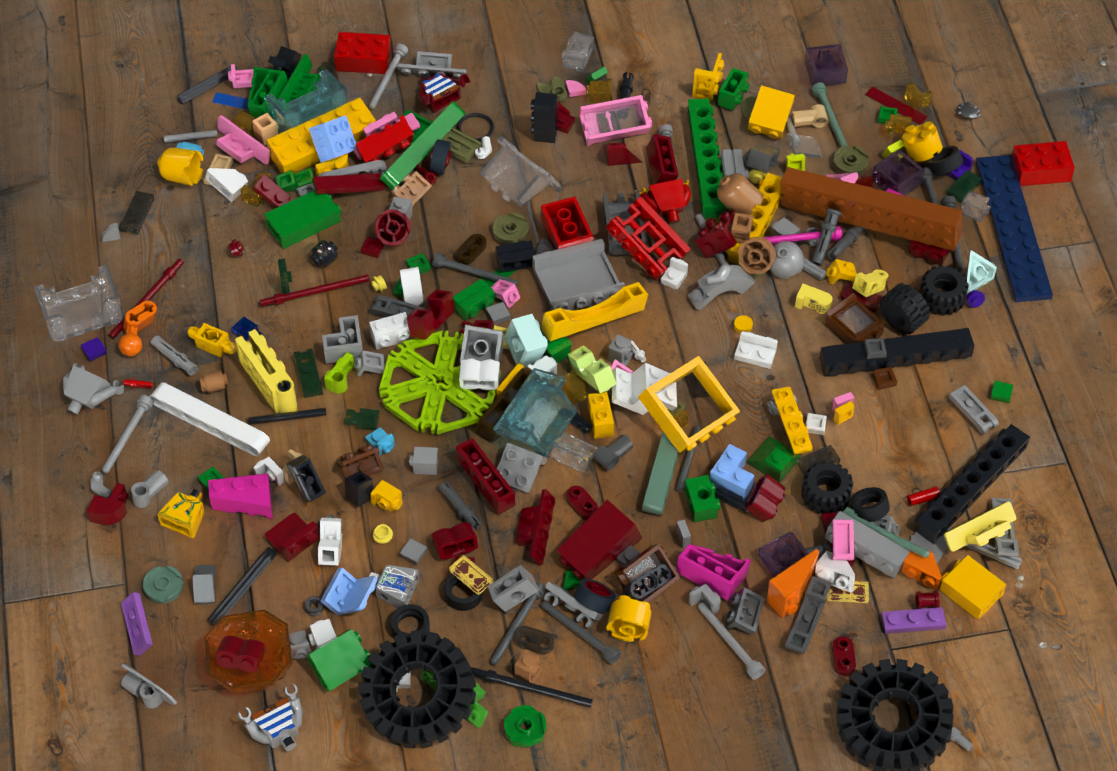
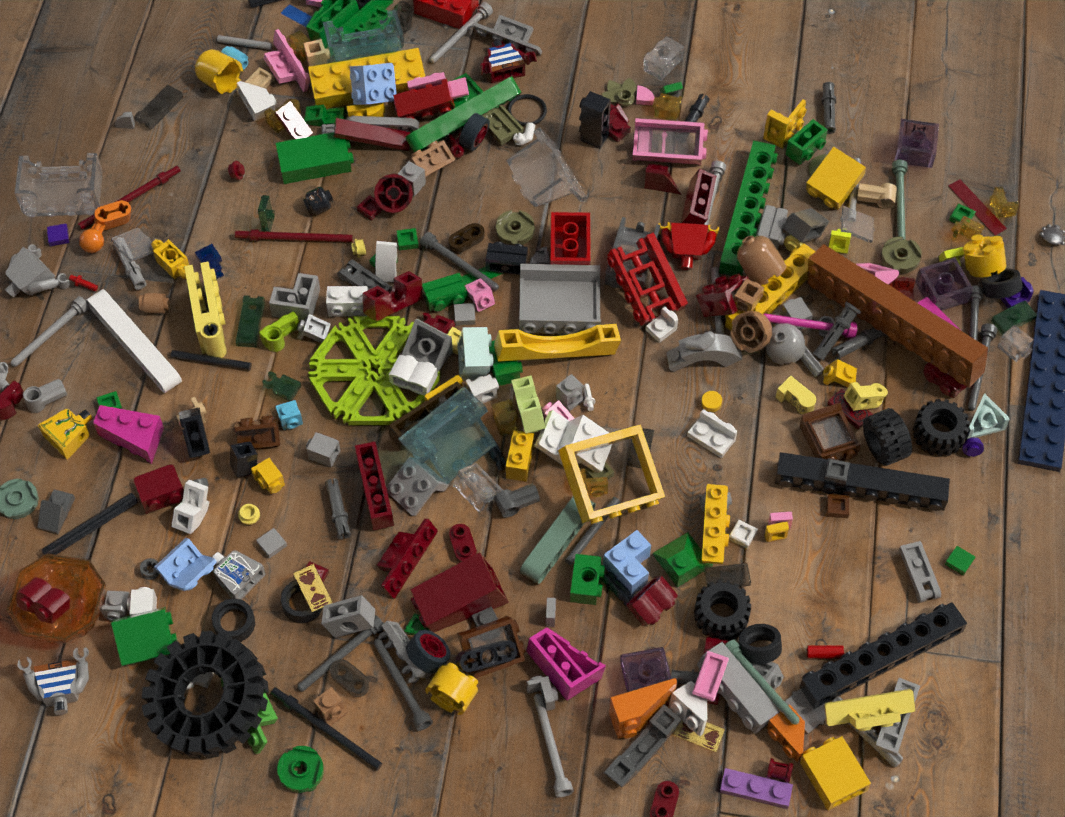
camera: 20 degrees right, 5 degrees up
(171, 337) = (133, 244): none -> clear piece
(270, 467) = (165, 409): white bracket -> none
(454, 540) = (314, 545): dark red brick -> none
(736, 51) = (829, 101): none -> dark grey pin
(745, 611) = (579, 719): dark grey bracket -> none

